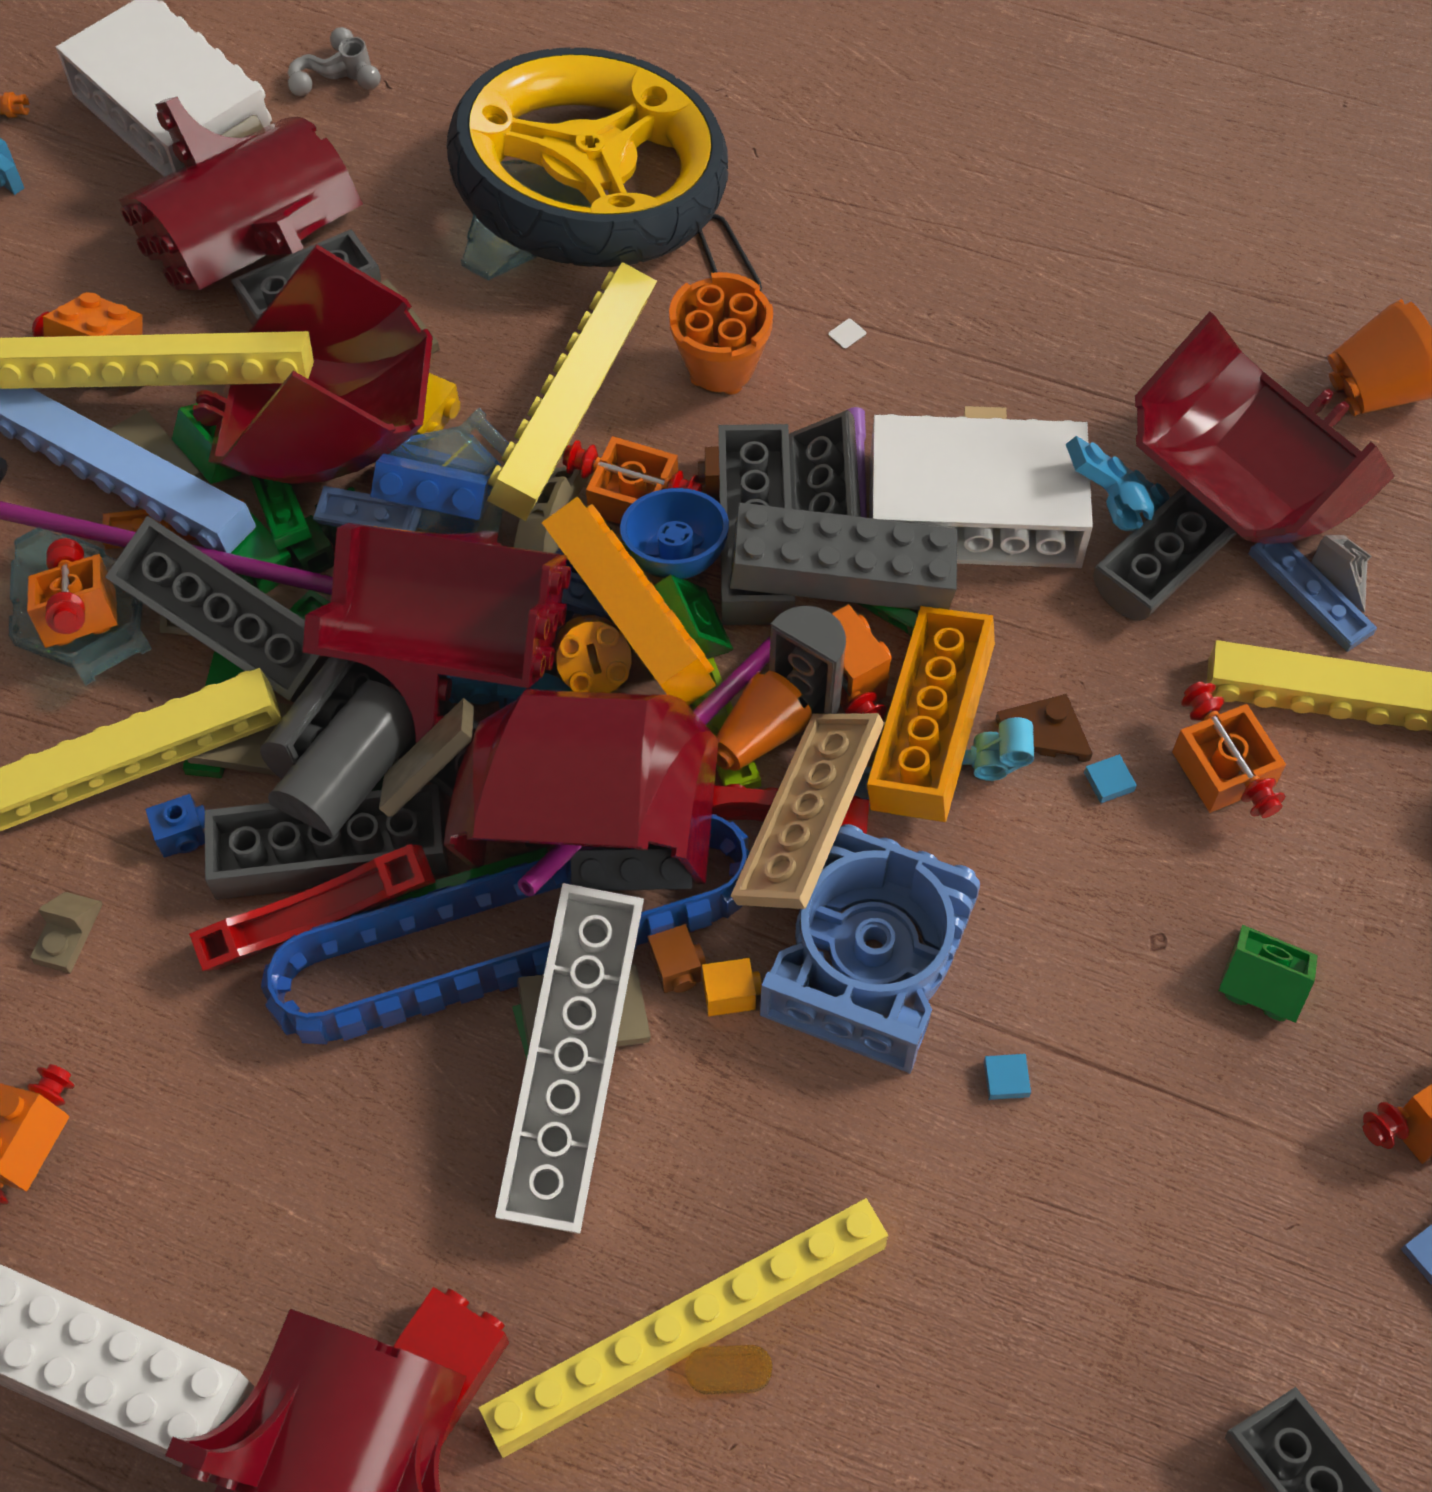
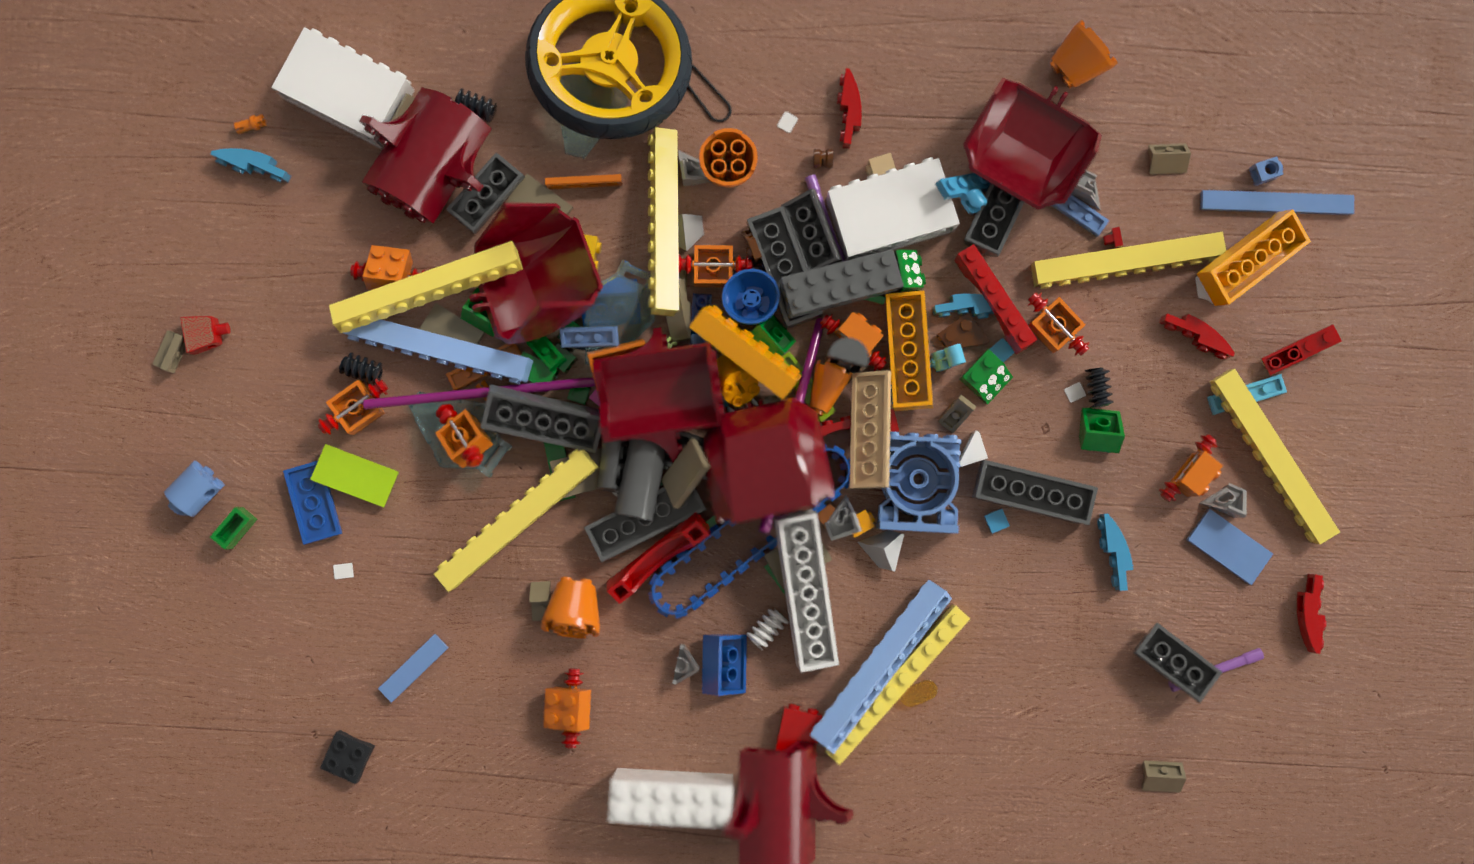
camera: 20 degrees left, 25 degrees up
(107, 952) = (572, 609): none -> orange cone
(177, 825) = (570, 533): blue brick -> none
(276, 1139) = (685, 665): none -> light grey slope
(349, 61) = (425, 10): light grey piece -> none
(353, 1163) = (724, 664): none -> blue slope
(364, 171) = (483, 109): none -> black piece
(430, 486) = (620, 318): blue brick -> none
(467, 1121) = (767, 628): none -> white piece
(474, 312) = (584, 181): none -> orange tile
(609, 417) = (689, 230): none -> light grey slope
(656, 351) = (691, 170): none -> light grey slope
(660, 1270) = (880, 666): none -> light blue brick
(694, 964) = (843, 521): none -> light grey slope
(759, 1053) = (883, 548): none -> light grey slope
(887, 391) = (823, 158): none -> reddish brown wheel
(959, 338) = (850, 102): none -> red slope
(979, 581) = (910, 272): none -> green slope
(992, 848) = (957, 413): none -> dark tan slope
(998, 931) = (973, 451): none -> white slope
(1068, 807) = (986, 376): none -> green slope
(1091, 684) = (962, 304): none -> dark azure slope
(1101, 1039) = (1034, 492): none -> dark grey brick
(1145, 727) = (981, 276): none -> red arch
(1235, 895) = (1075, 392): none -> white sticker
(1243, 1198) = (1115, 543): none -> dark azure slope
(1284, 892) = (1099, 387): none -> black piece
(1378, 651) = (1114, 238): none -> red tile

